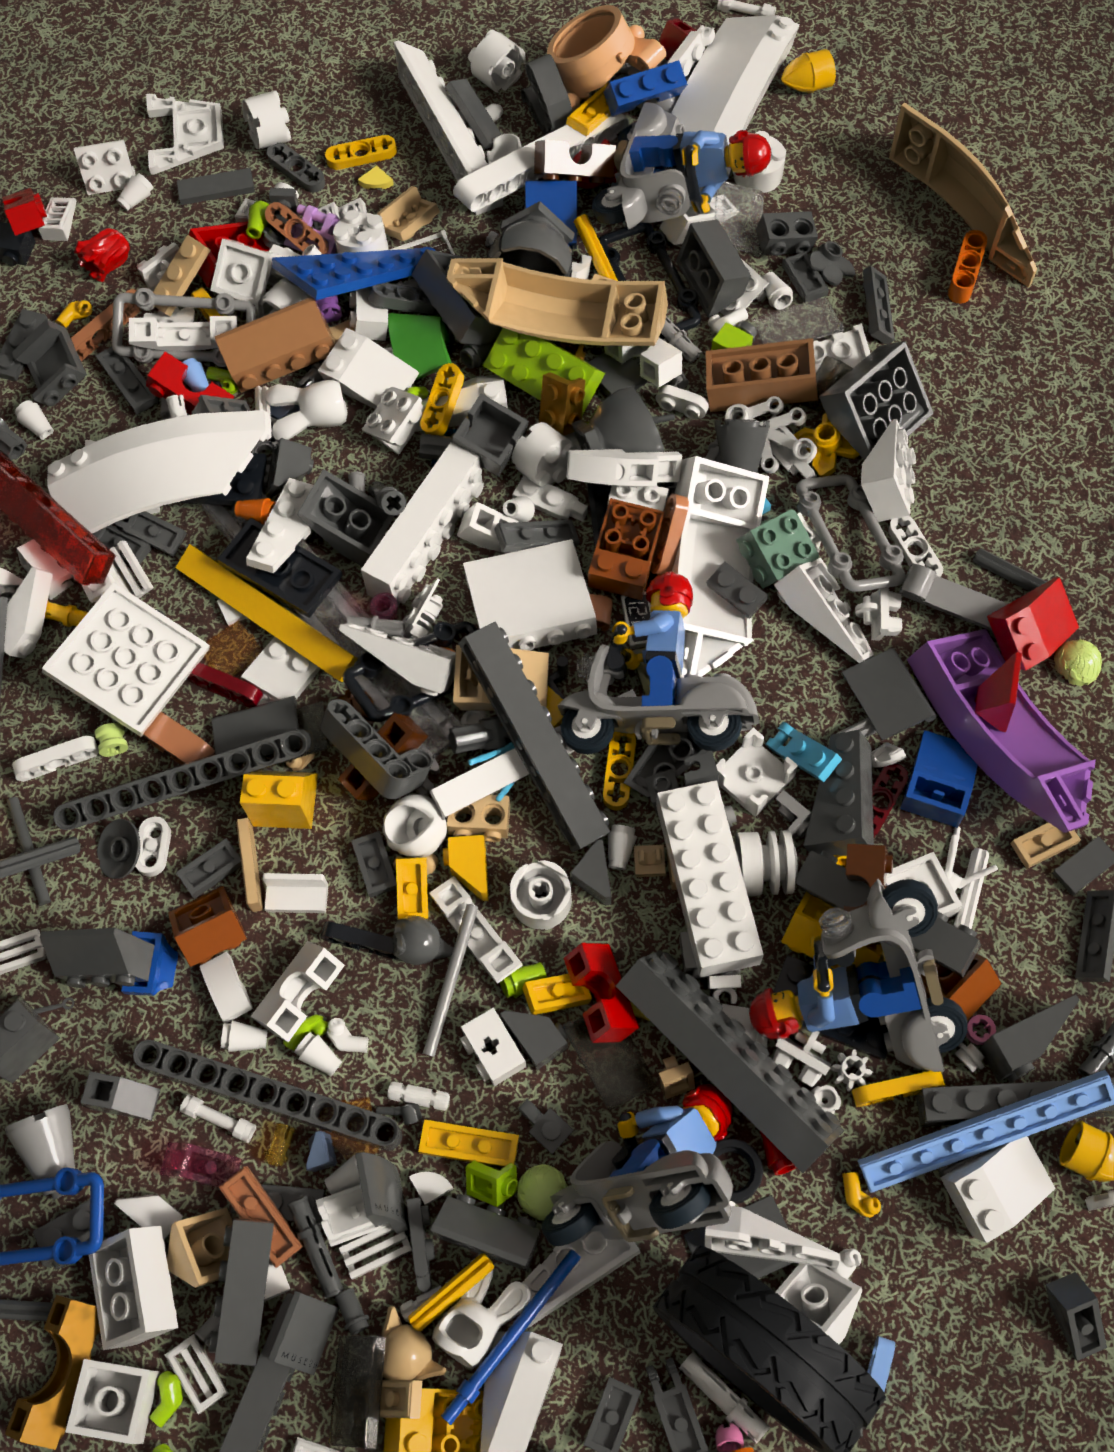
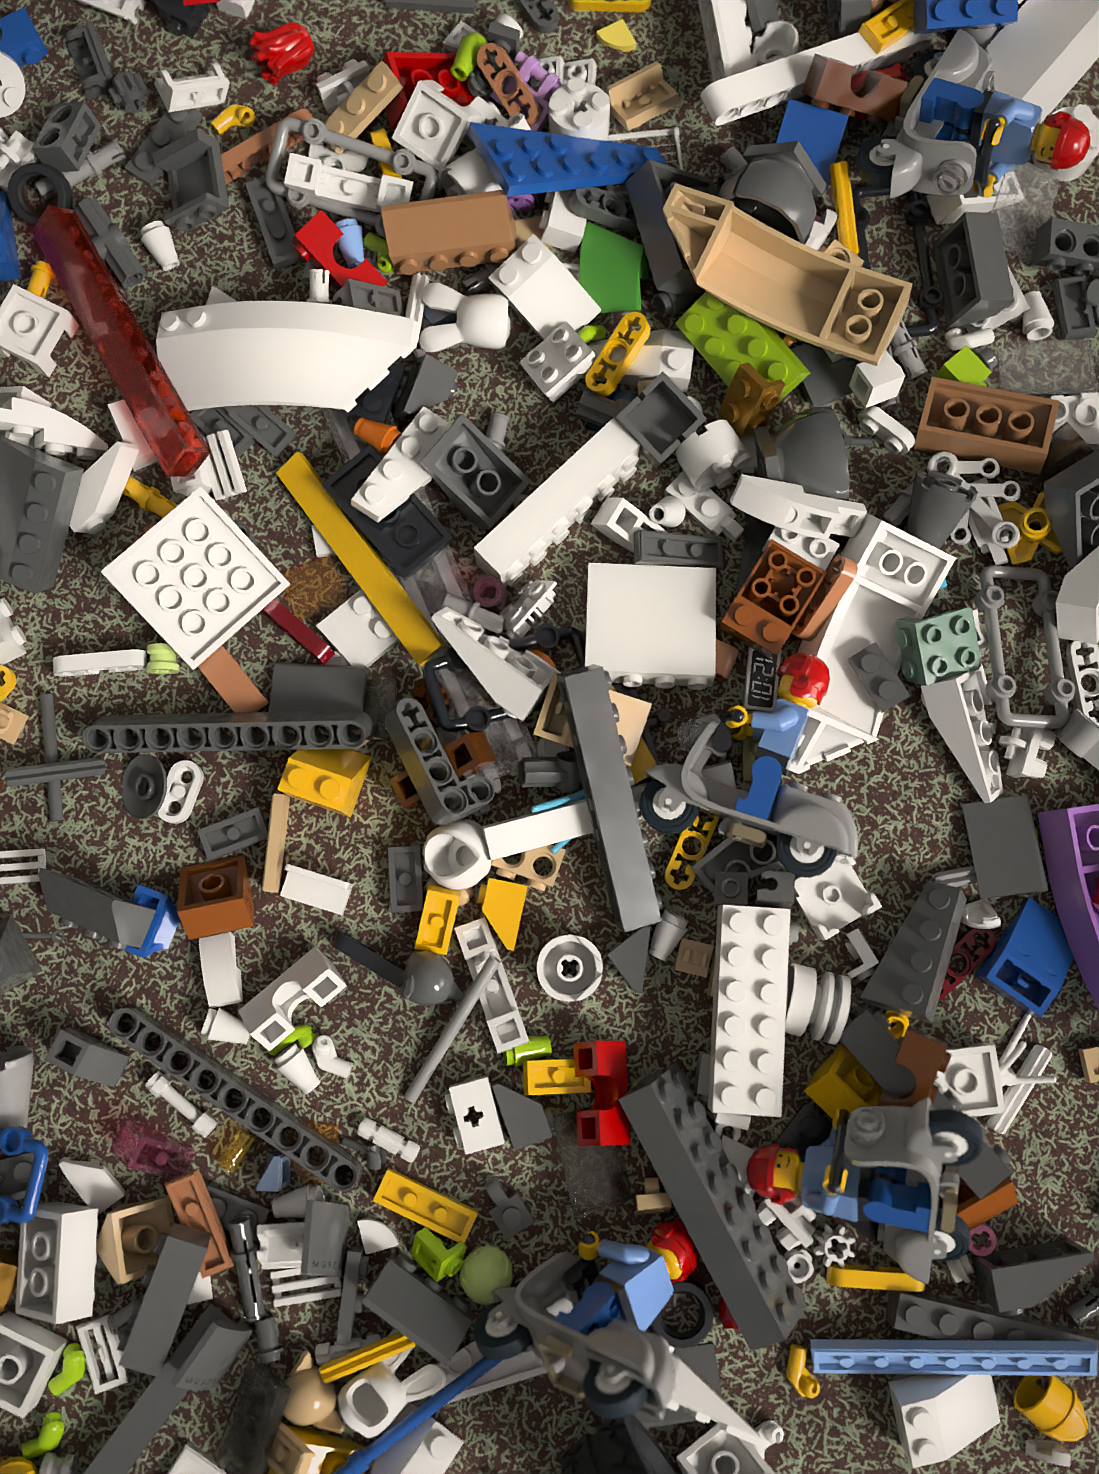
camera: 10 degrees right, 15 degrees up
(35, 299) = (193, 90): none -> white hinge
(388, 498) = (525, 464): dark grey pin -> none
(804, 751) = (893, 892): medium azure plate -> none

